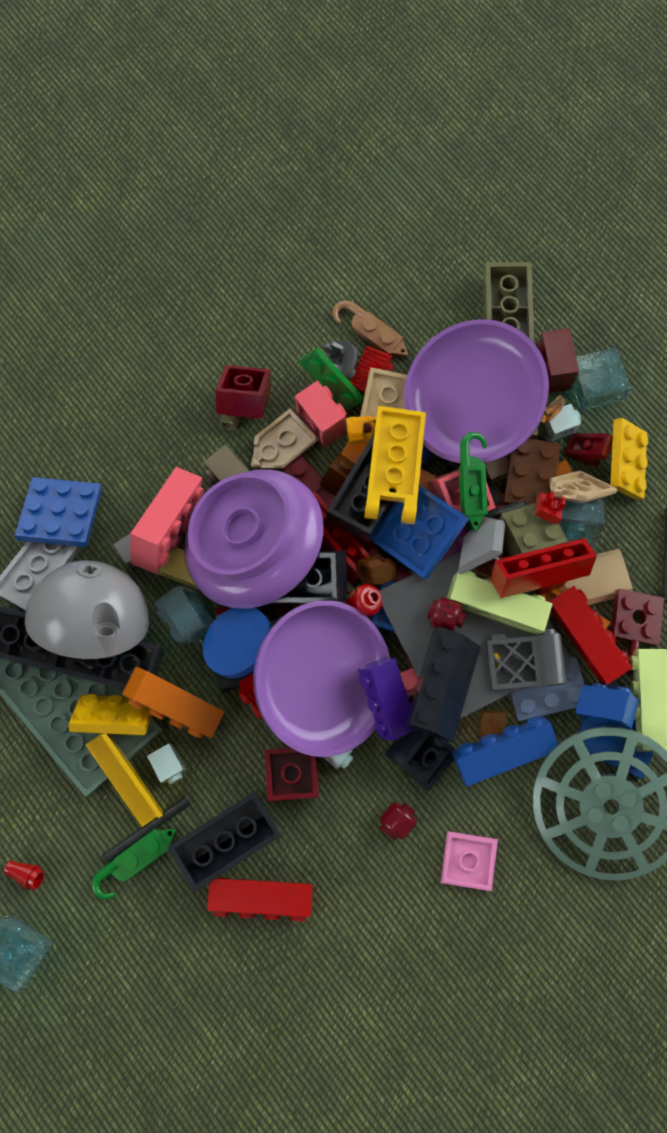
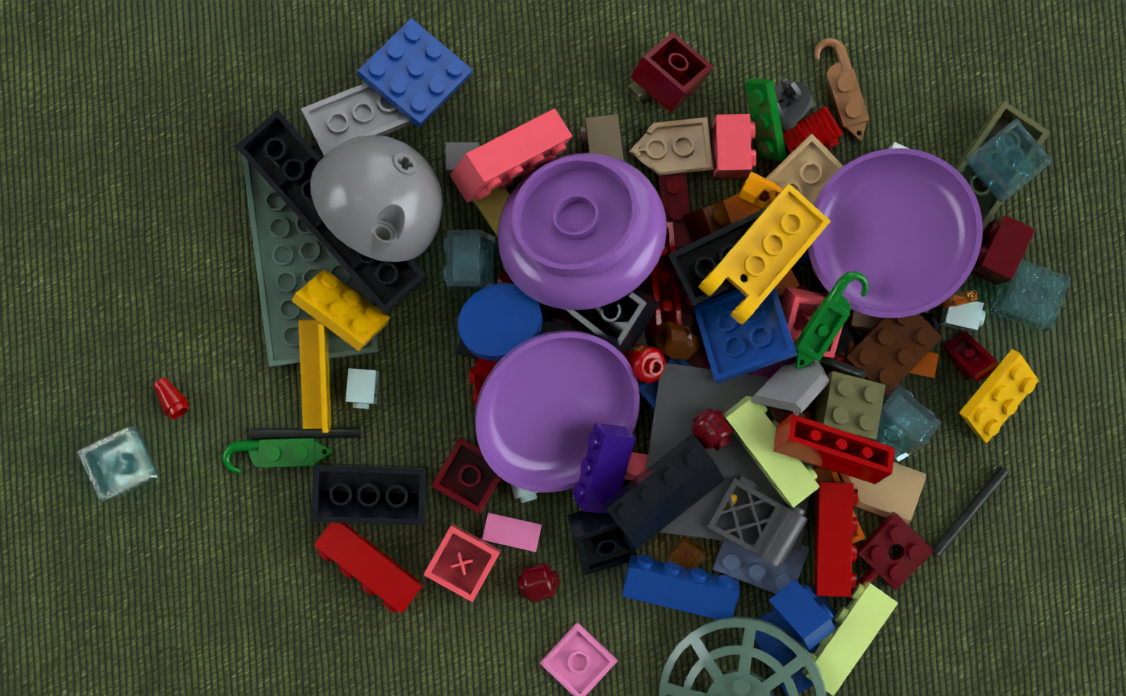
camera: 30 degrees right, 10 degrees up
(172, 702) = (403, 338): orange brick -> none
(330, 845) = (462, 562): none -> coral brick
(352, 796) = (512, 532): none -> bright pink tile
(517, 294) = (1008, 160): none -> clear light blue brick
(549, 507) = (881, 397): red tile -> none
(580, 487) = (927, 394): tan tile -> none

